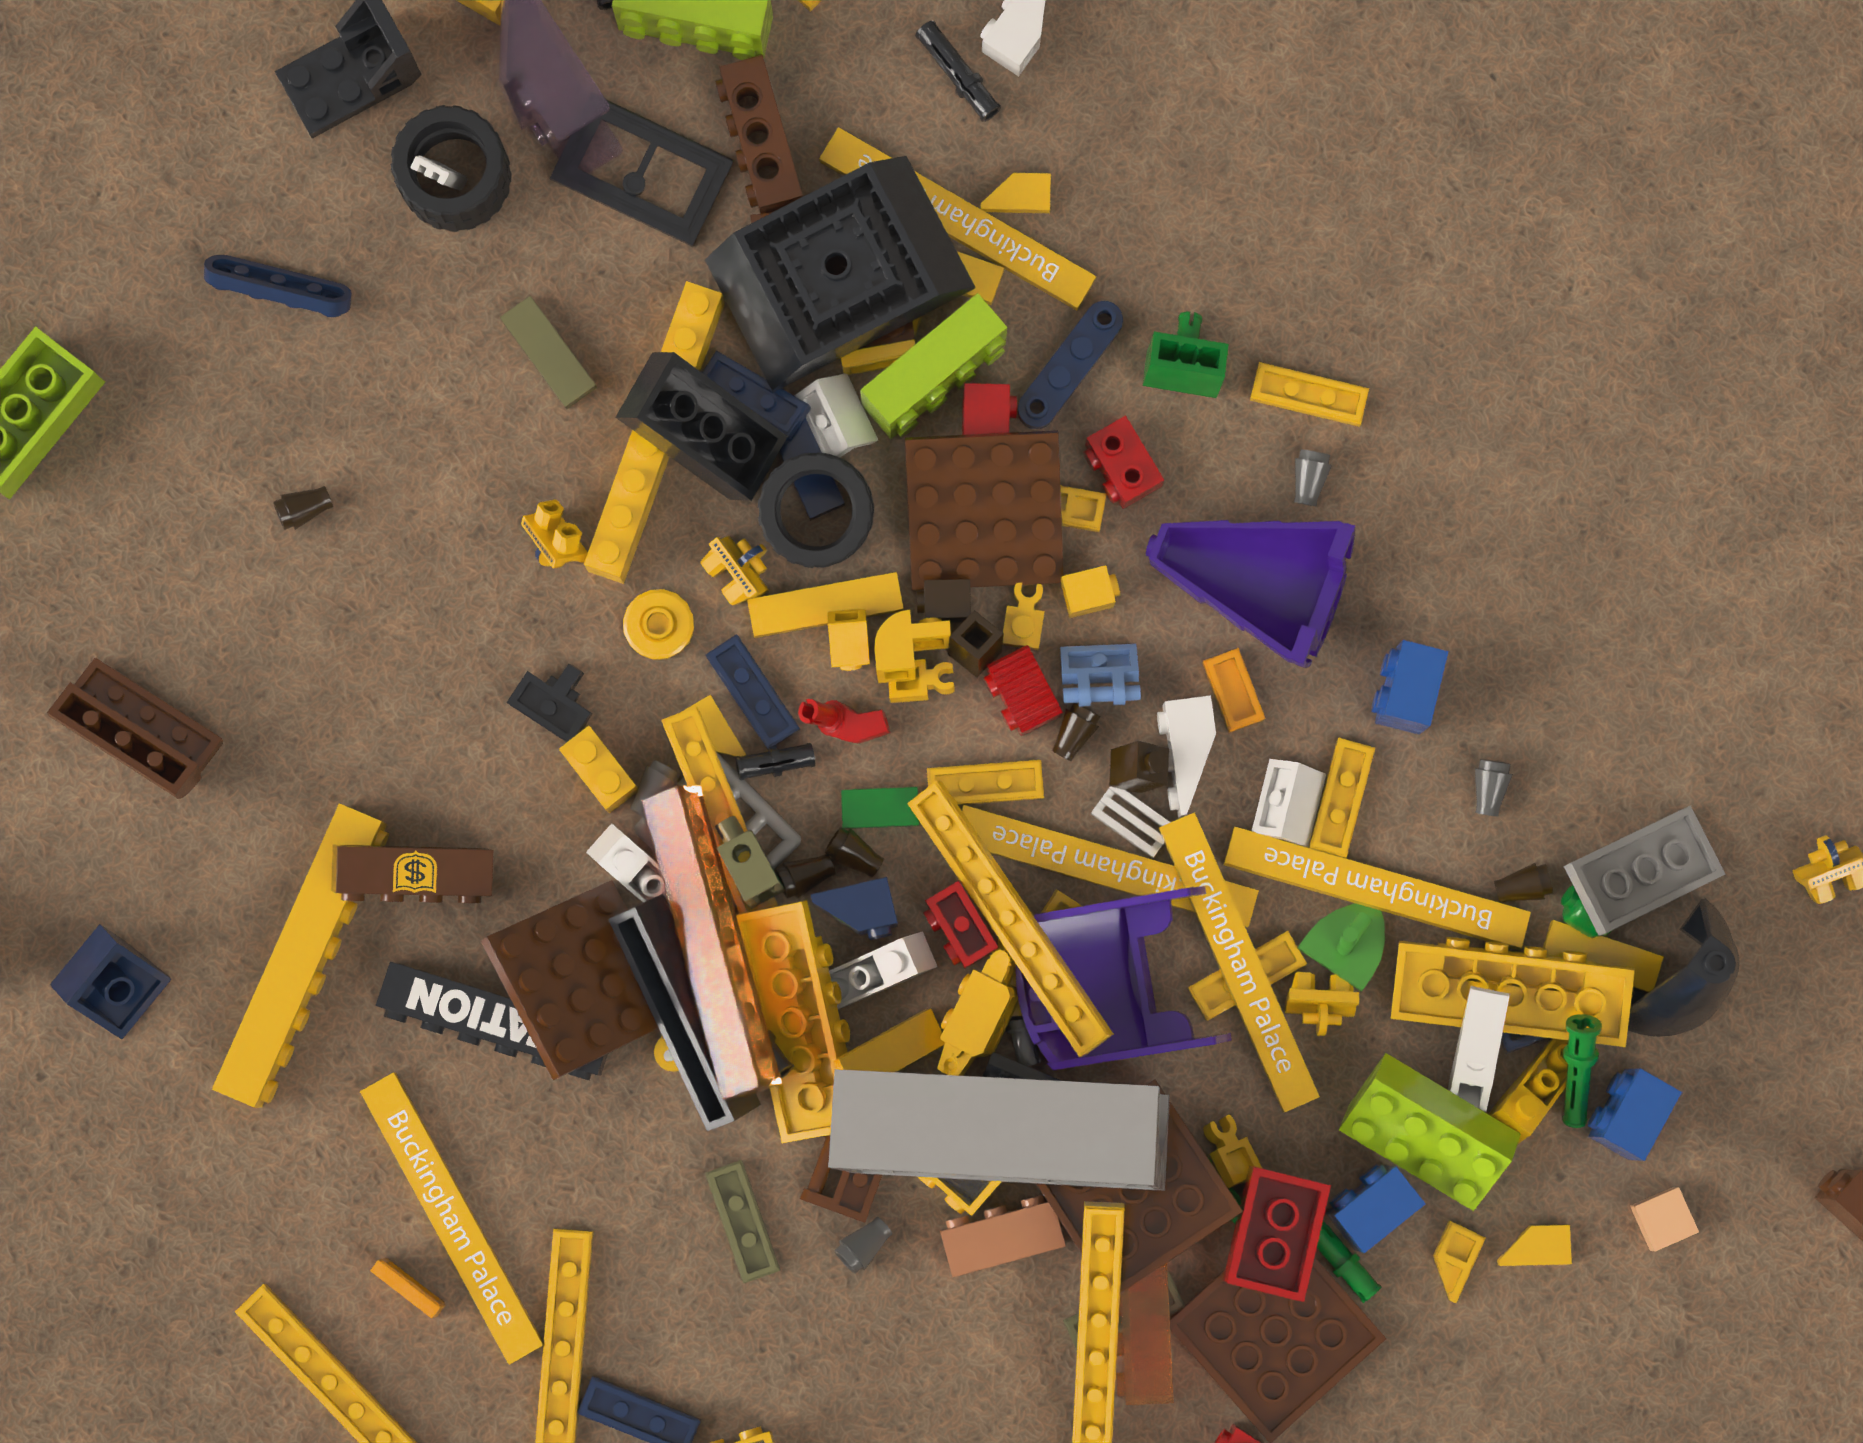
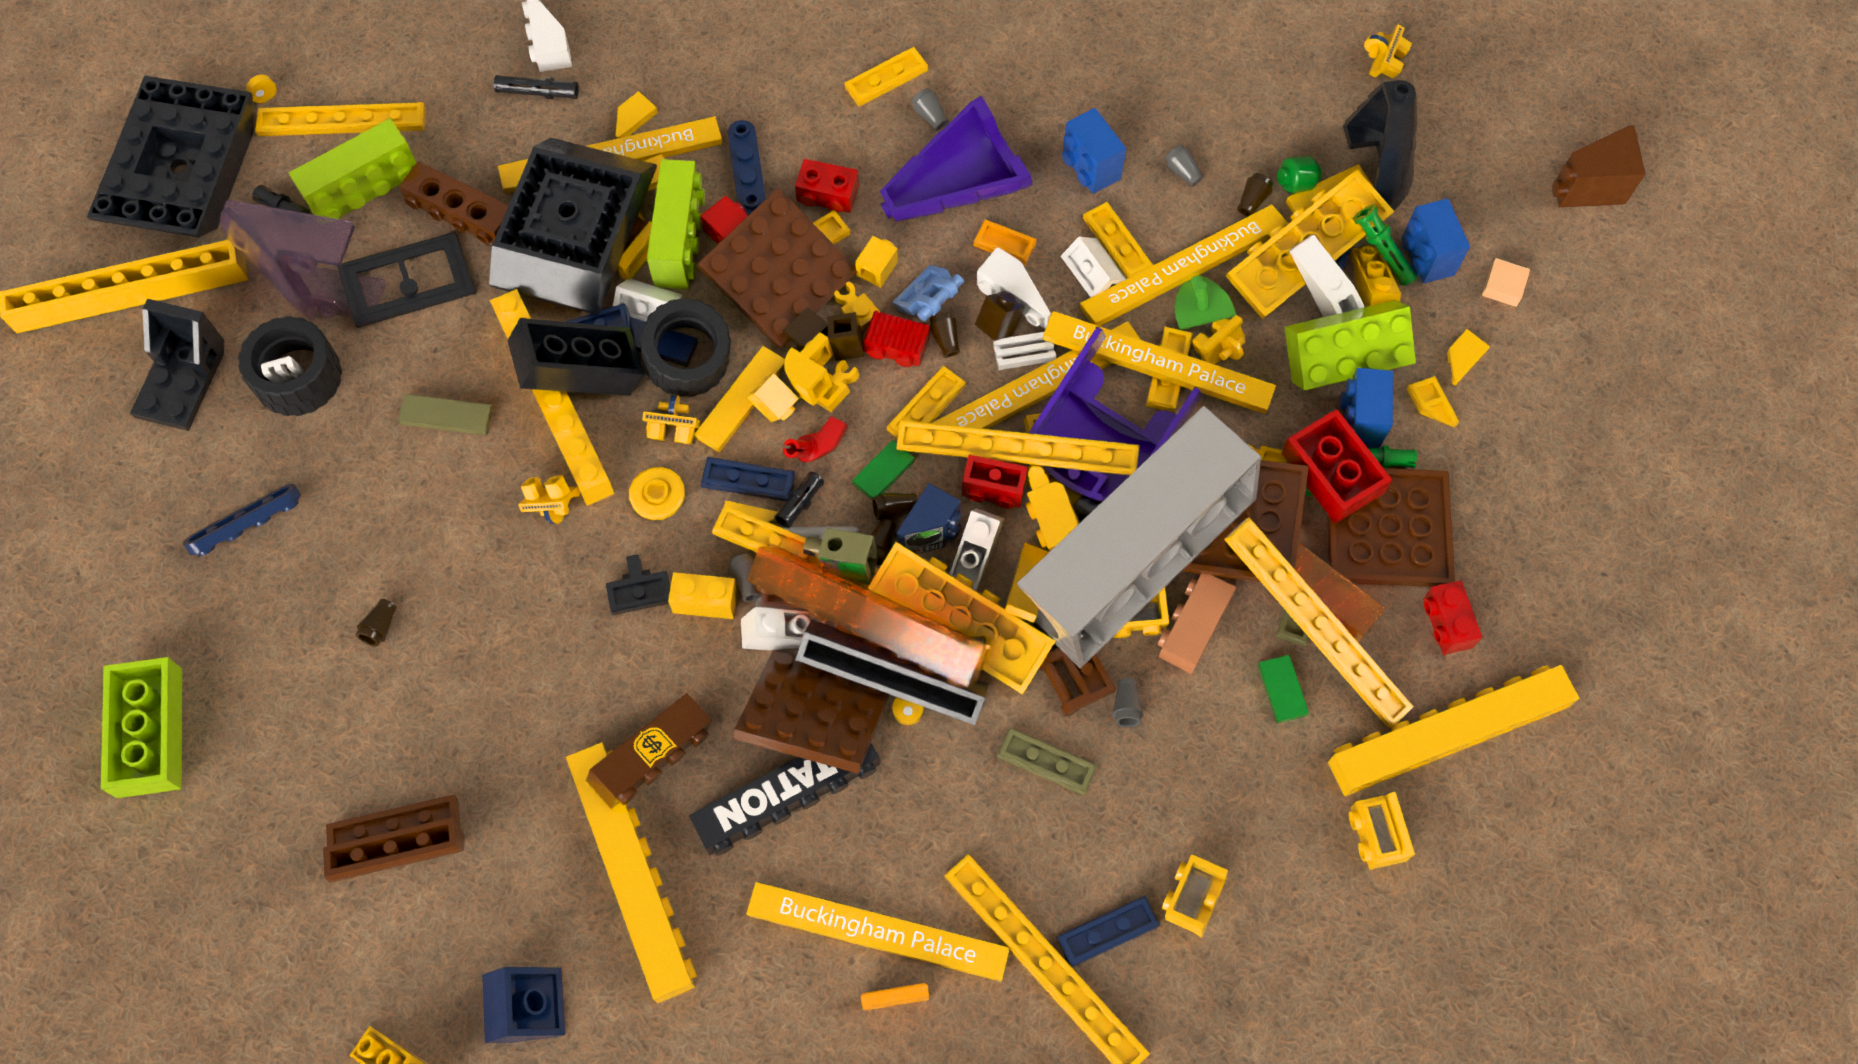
camera: 45 degrees left, 15 degrees down
(1014, 1372) = (1283, 689): none -> green tile
(1185, 361) = (807, 110): green brick -> none
(1644, 870) = (1304, 129): light grey plate -> none

